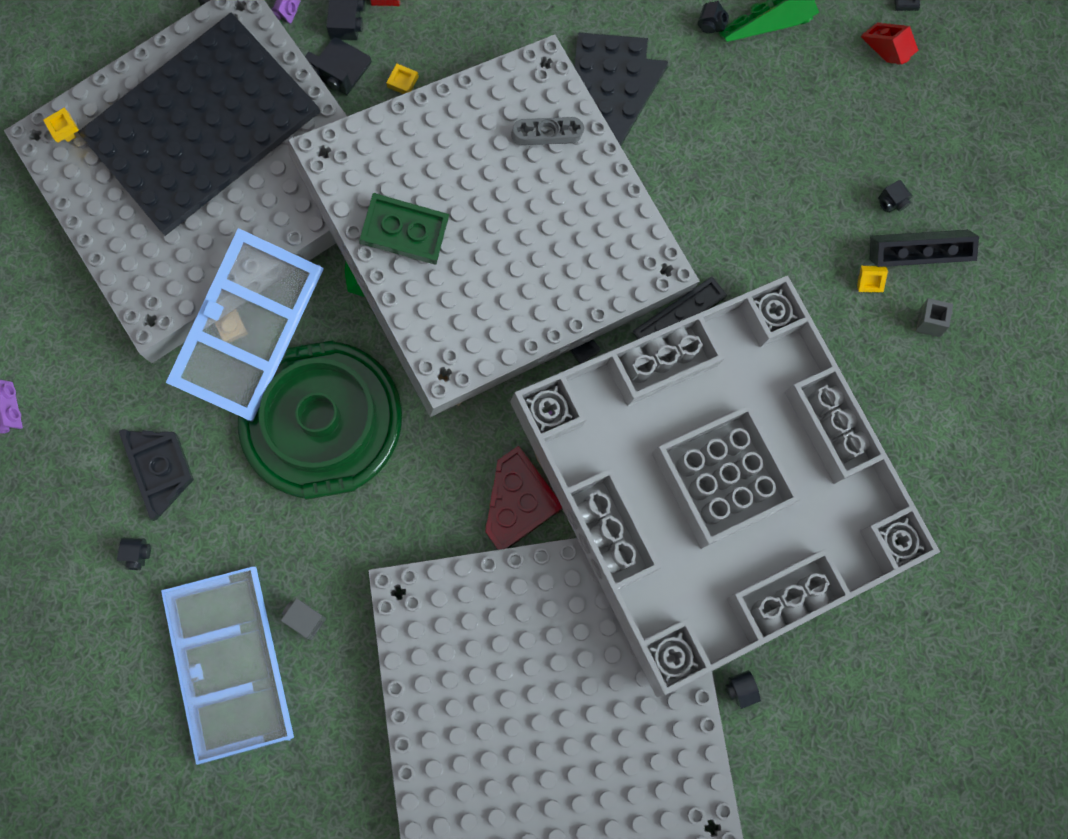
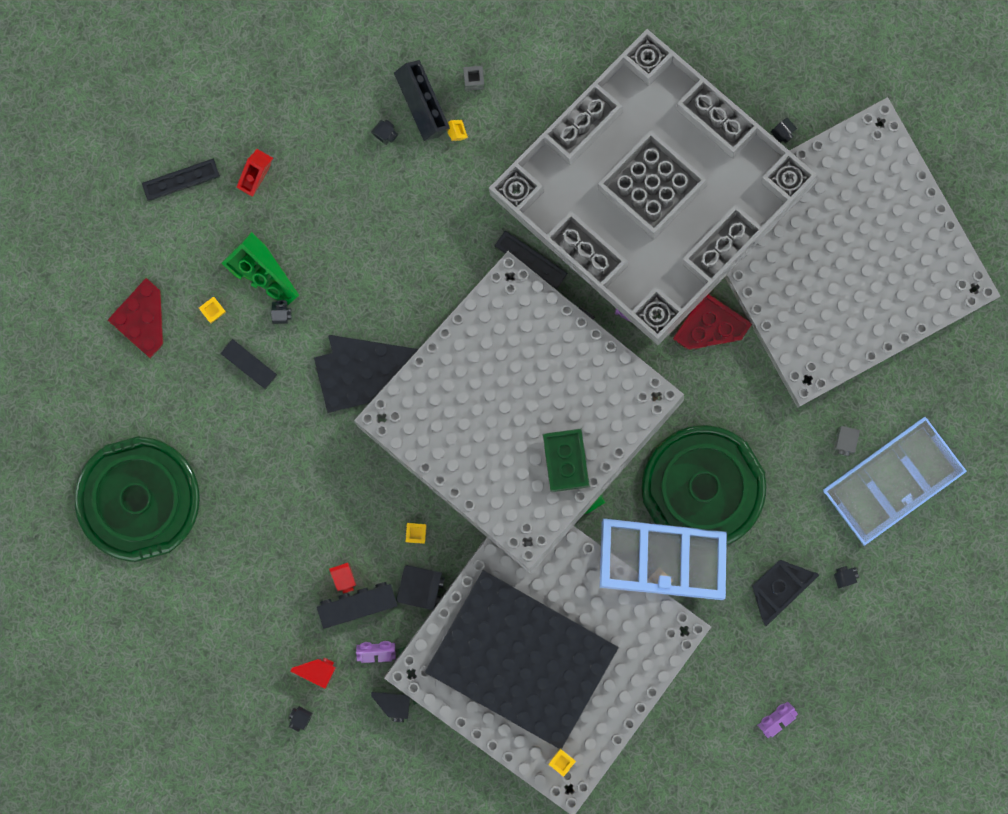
camera: 120 degrees left, 10 degrees up
(541, 139) = (453, 402): dark grey beam -> none

